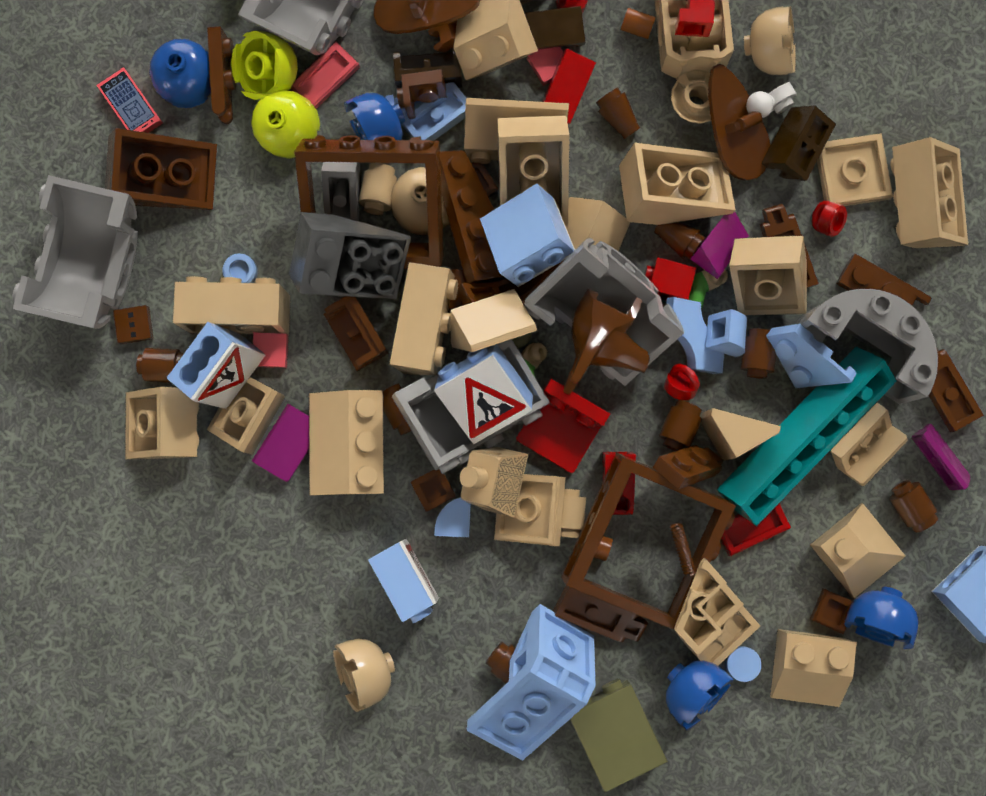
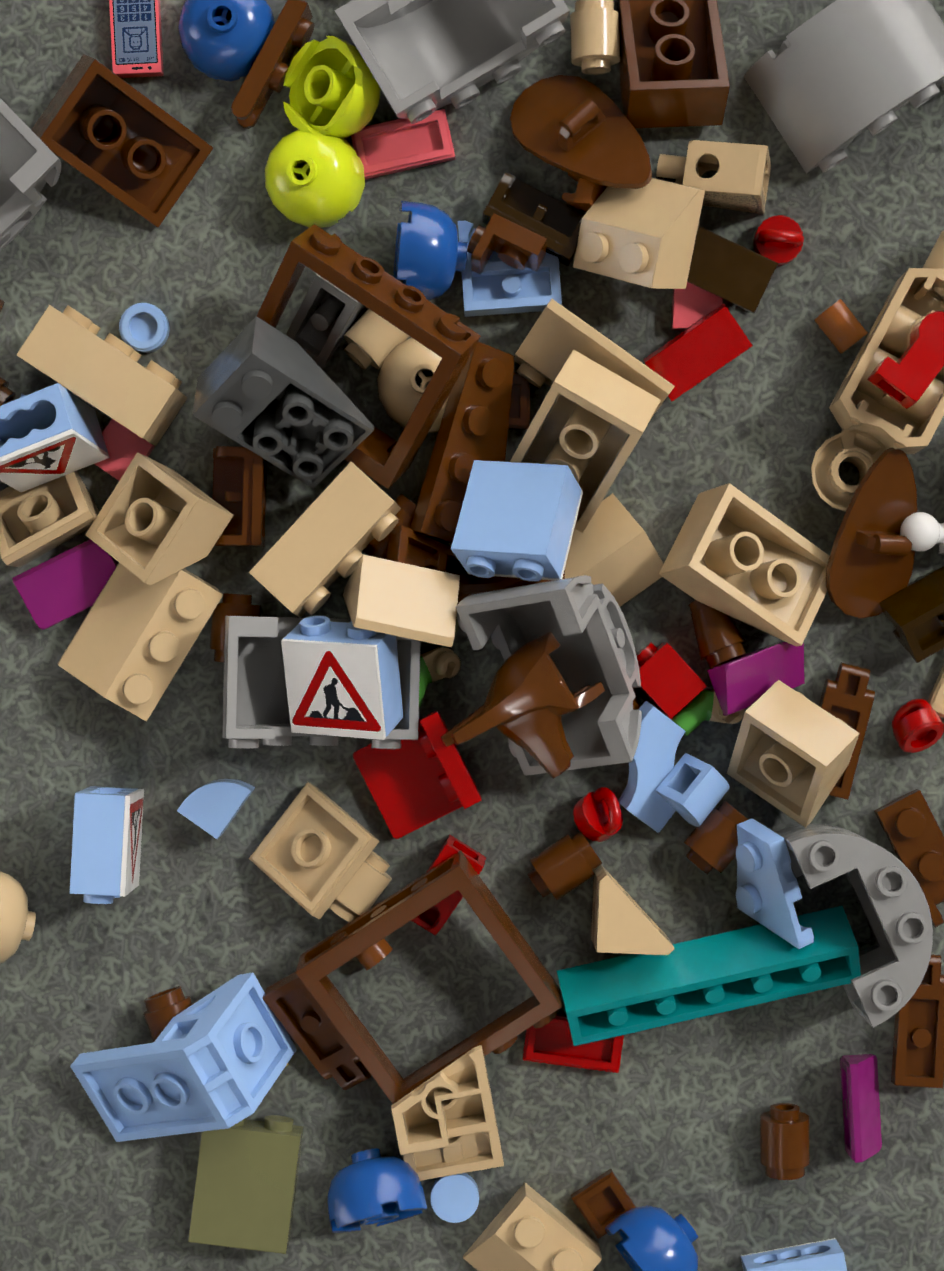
camera: 40 degrees right, 5 degrees up
(316, 371) = (157, 521): none -> tan slope
(433, 489) = (210, 753): reddish brown plate -> none
(493, 479) = (291, 788): tan torso -> none
(618, 112) = (741, 426): reddish brown cone -> none
(683, 549) = (462, 1019): reddish brown piece -> none
(689, 466) = (537, 923): reddish brown hinge -> none
(857, 550) = (683, 1150): tan slope -> none
(868, 445) = (776, 1035): tan bracket -> none

